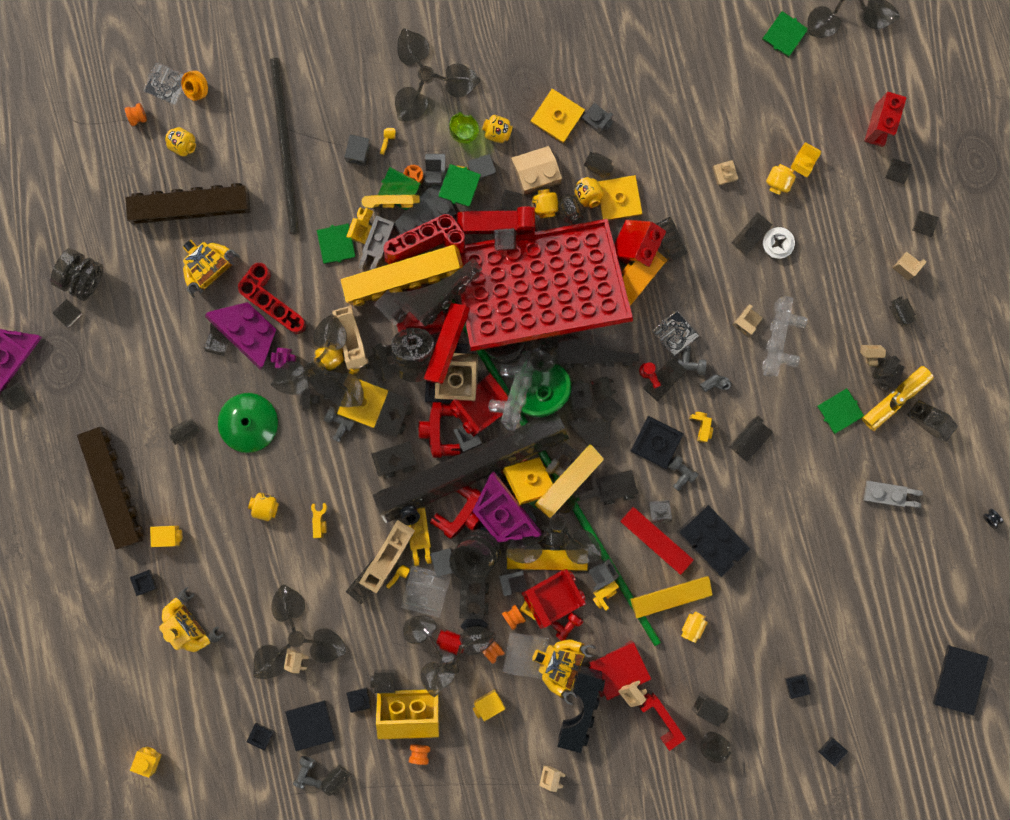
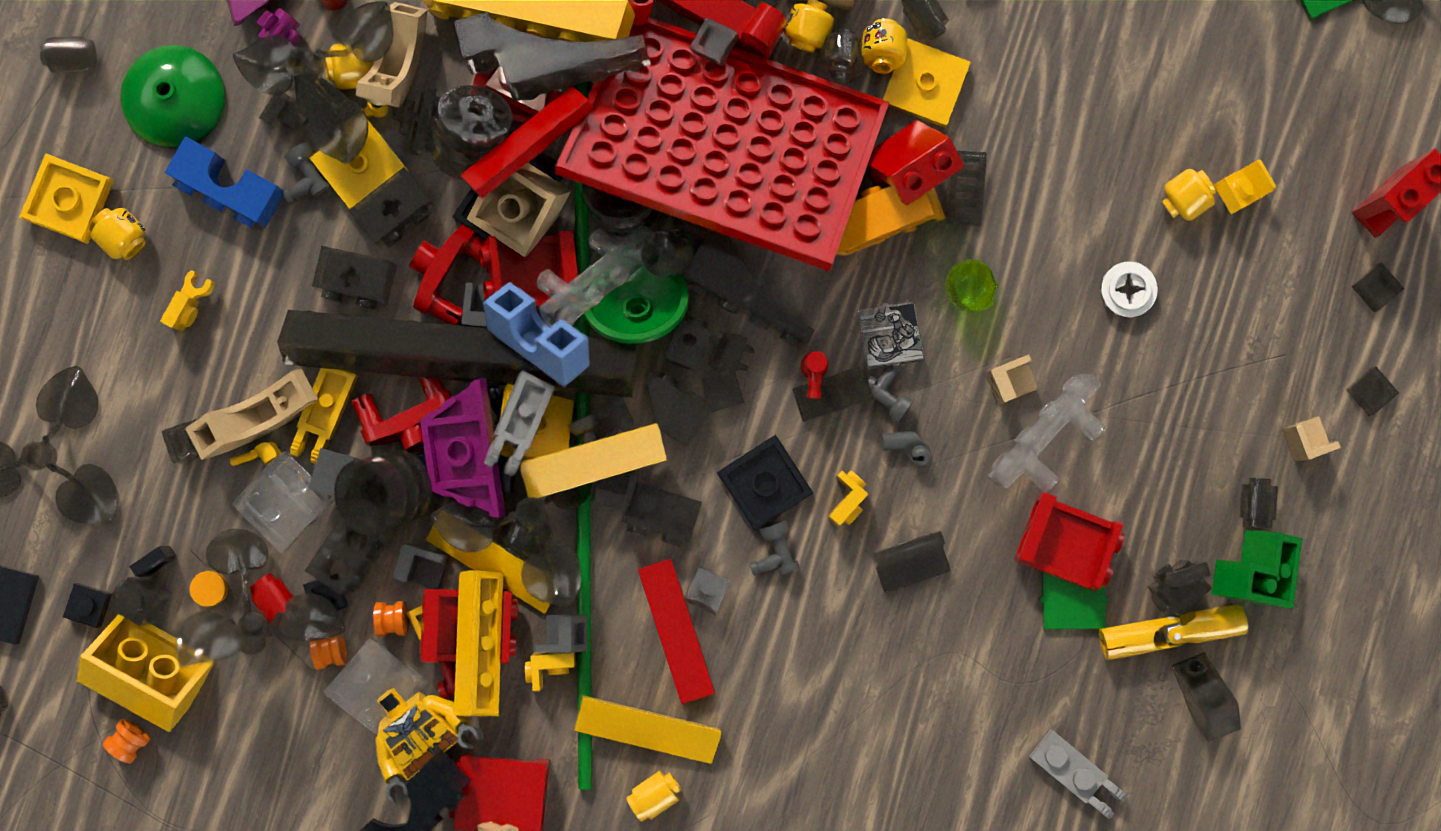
camera: 35 degrees right, 0 degrees up
(226, 504) = (66, 198): none -> yellow plate
(293, 661) = (23, 490): tan tile -> none
(320, 451) = (198, 170): none -> blue arch
(379, 658) = (153, 561): none -> black tile
(406, 516) = (323, 363): black bush -> none
(414, 656) = (209, 588): none -> light orange tile
(488, 705) = (273, 729): yellow brick -> none
(492, 434) = (555, 350): none -> medium blue arch
(523, 482) = (520, 420): none -> light grey hinge
(565, 603) = (478, 643): none -> yellow slope
(701, 286) = (971, 286): none -> clear neon green hair
(714, 540) = (761, 681): black piece -> none
(725, 173) = (1110, 137): tan tile -> none
(751, 233) = (1096, 251): clear smoke plate -> none
(822, 384) = (1069, 543): none -> red panel
(872, 353) = (1174, 540): tan tile -> none
(925, 343) = (1265, 572): none -> green brick

